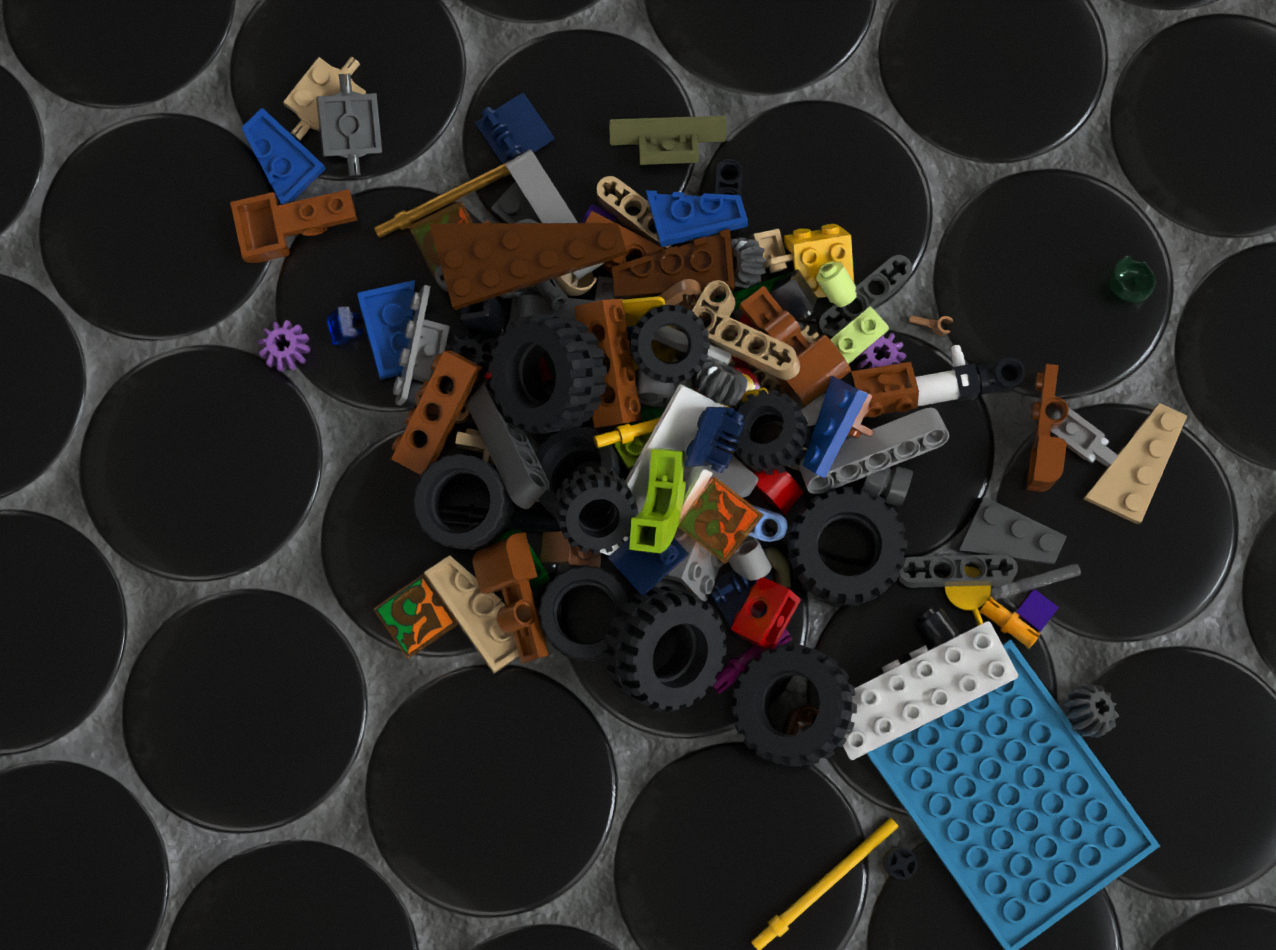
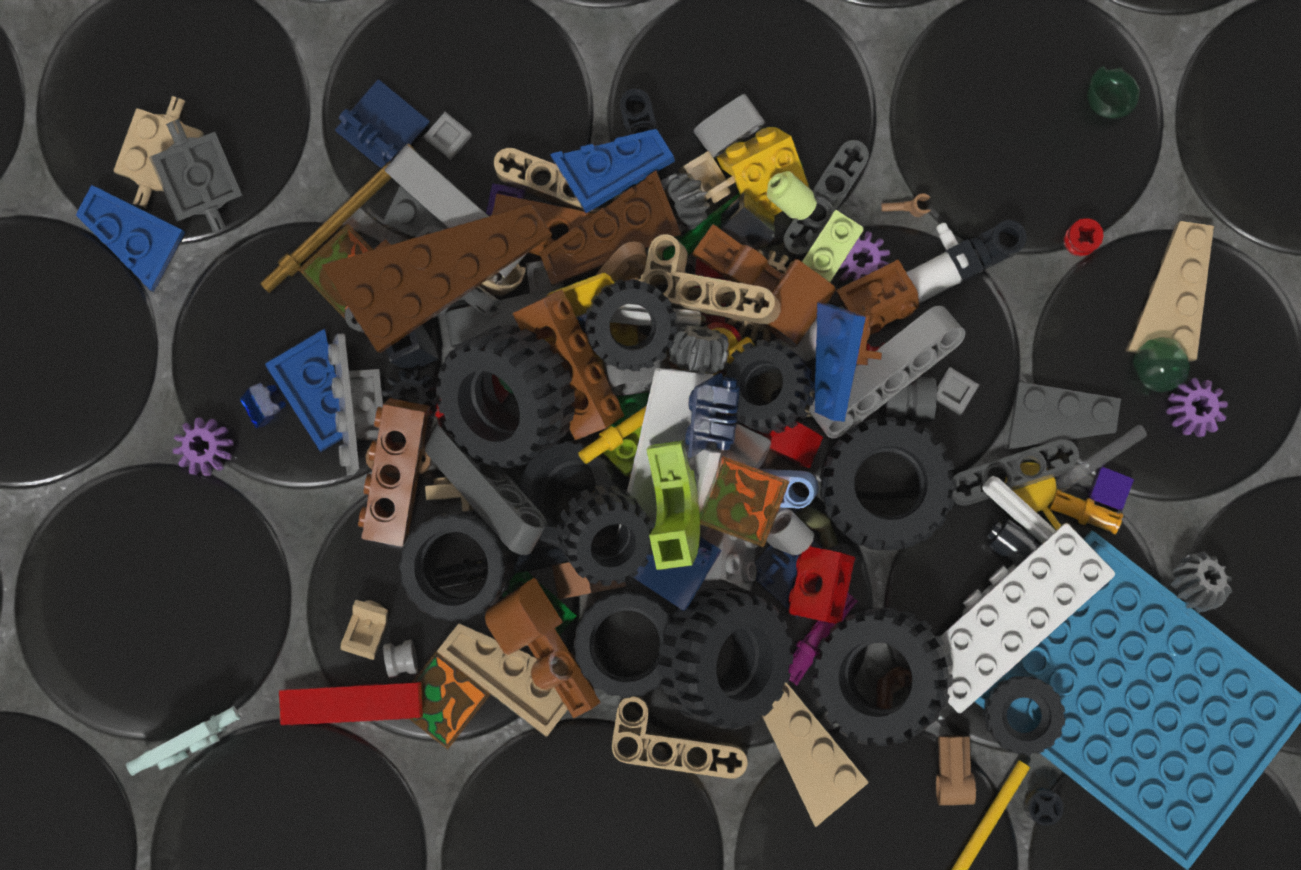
camera: 15 degrees left, 5 degrees up
(179, 586) = (193, 739): none -> light aqua plate
(266, 224) = (139, 317): dark orange plate -> none
(338, 594) = (351, 703): none -> red slope
(370, 536) = (365, 629): none -> tan bracket
(392, 570) = (400, 658): none -> light grey wheel
(566, 154) = (447, 136): none -> light grey tile
(604, 715) = (679, 745): none -> tan beam
(668, 139) = (555, 85): olive bracket -> none
(713, 758) = (812, 757): none -> tan wing
(802, 212) = (729, 125): none -> light grey beam
(830, 816) = (955, 781): none -> medium nougat piece
(927, 488) = (955, 390): none -> light grey tile
(929, 771) = (1051, 715): none -> black tyre
(950, 599) = (1018, 509): none -> white axle
(1047, 452) = (1075, 318): dark orange plate -> none
(1070, 395) = (1078, 243): none -> red wheel
(1082, 437) = (1099, 282): light grey hinge -> none
(1110, 517) = (1162, 364): none -> clear green hair
(1140, 563) = (1207, 403): none -> medium lavender gear

